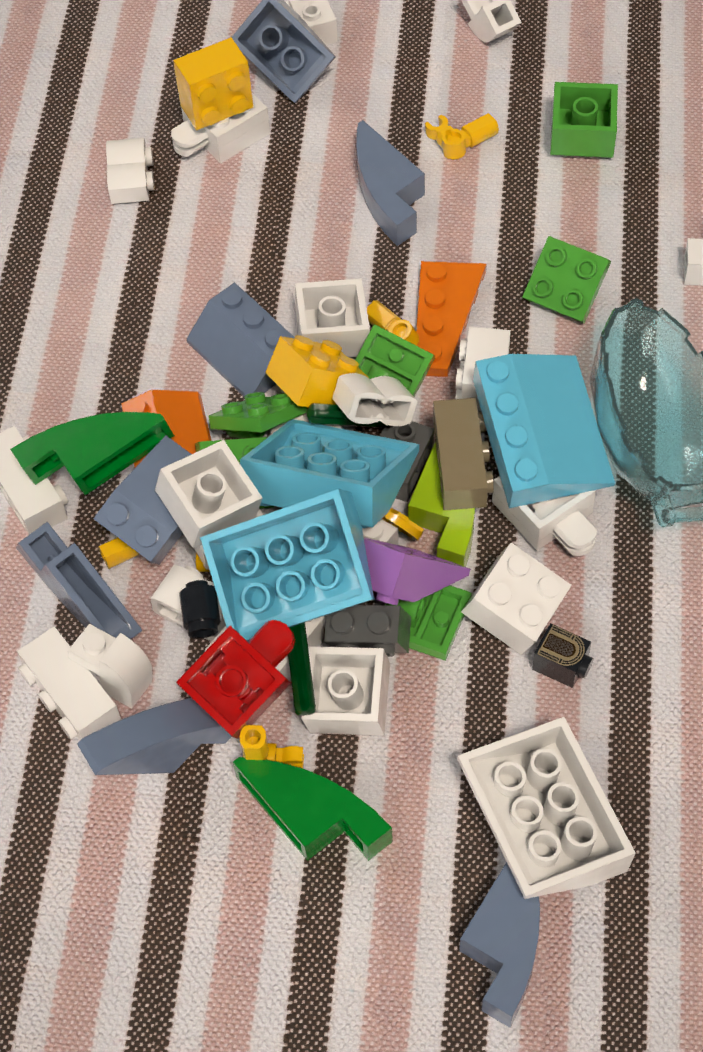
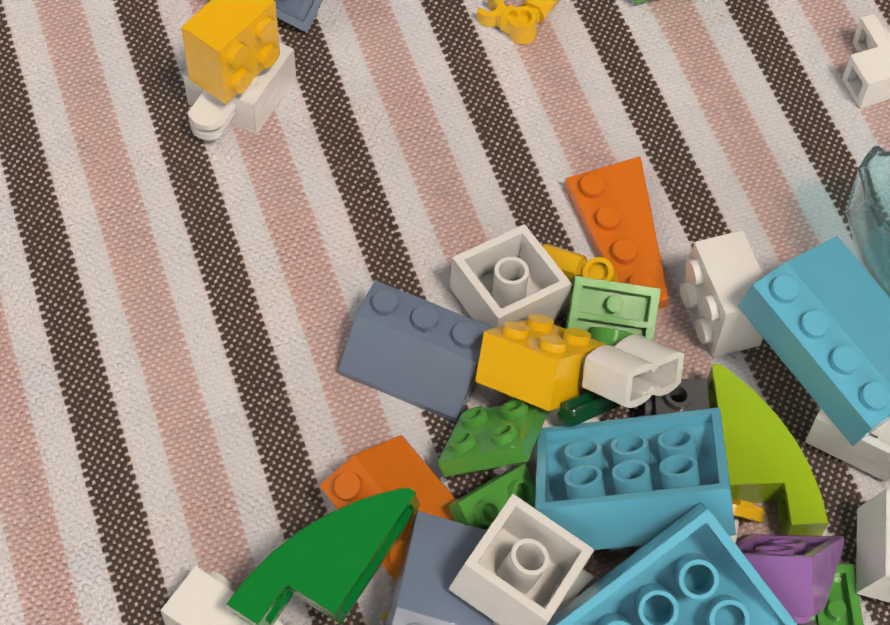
camera: 30 degrees left, 0 degrees up
(128, 170) = (154, 180): white brick -> none
(388, 184) = (474, 96): sand blue slope -> none
(461, 454) = (764, 400): dark tan brick -> none
(566, 279) = (743, 145): bright green plate -> none

